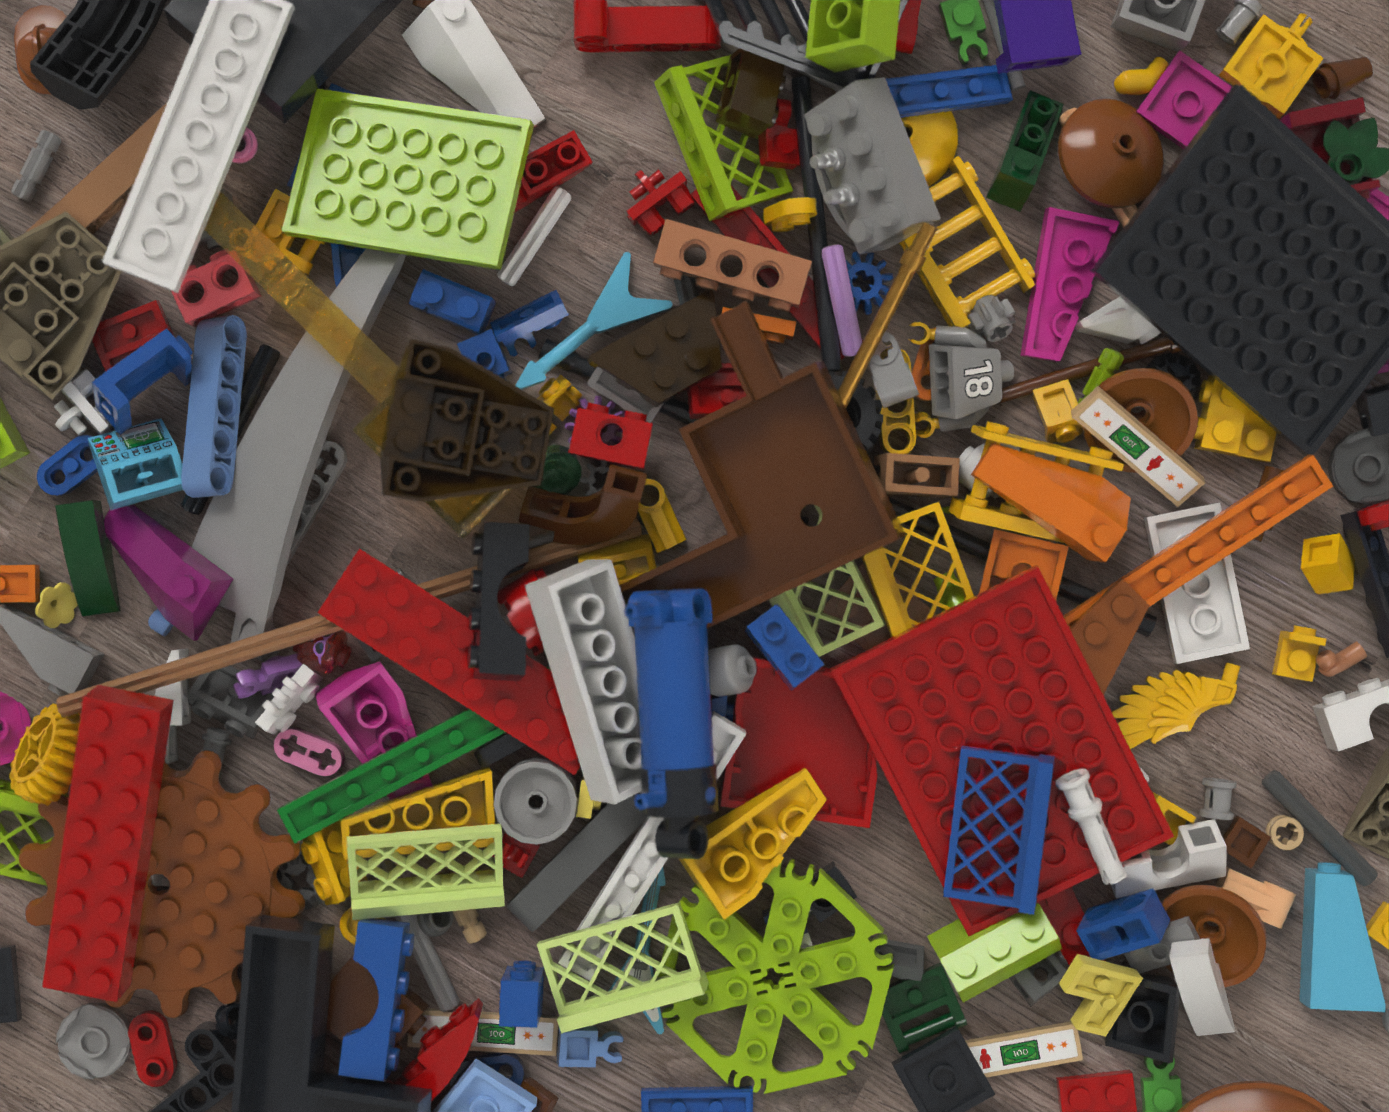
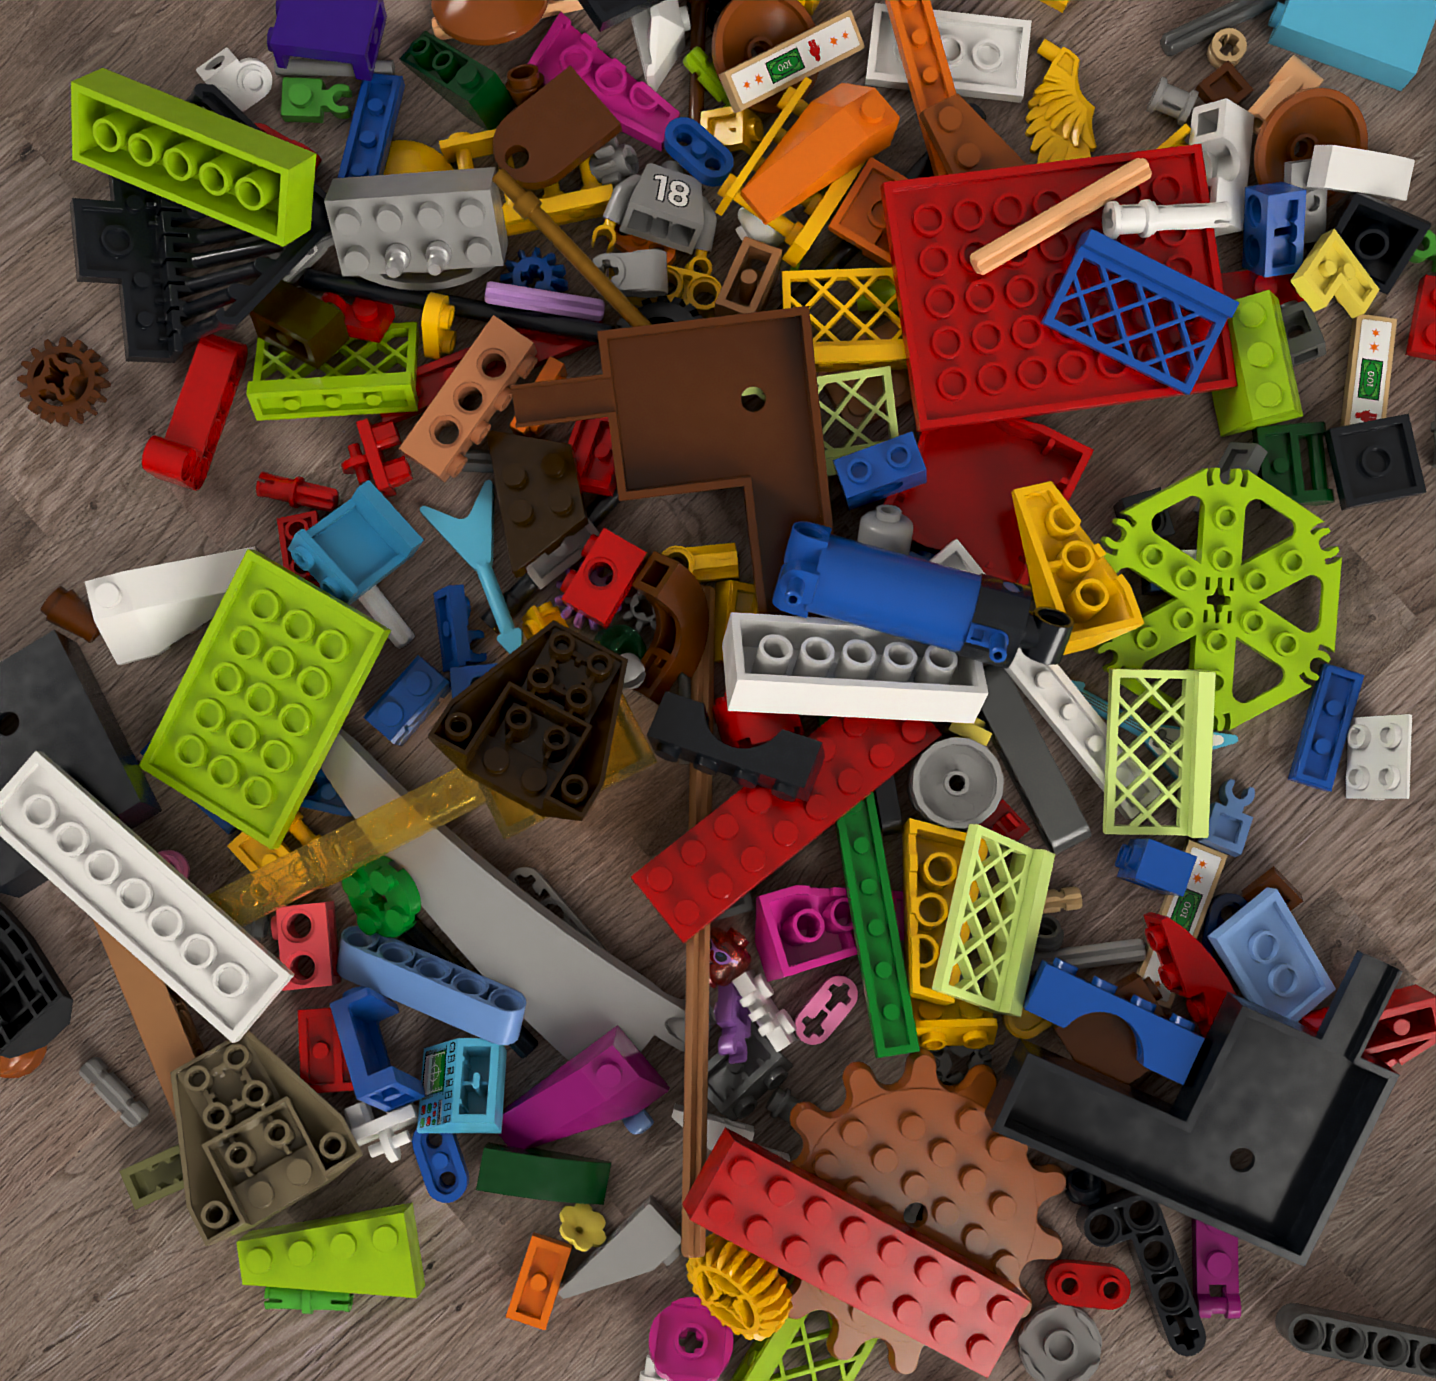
camera: 70 degrees left, 5 degrees down
(258, 340) = (374, 913): none -> green plate
(540, 492) = (634, 673): none -> light grey hinge
(570, 208) = (355, 545): none -> dark azure panel
(604, 139) = (297, 492): none -> red axle
(1001, 258) = (555, 129): none -> reddish brown tile
(1027, 393) = (701, 152): none -> blue plate
(1030, 219) = (524, 82): none -> reddish brown cone
(1061, 733) = (1060, 216): none -> light nougat axle

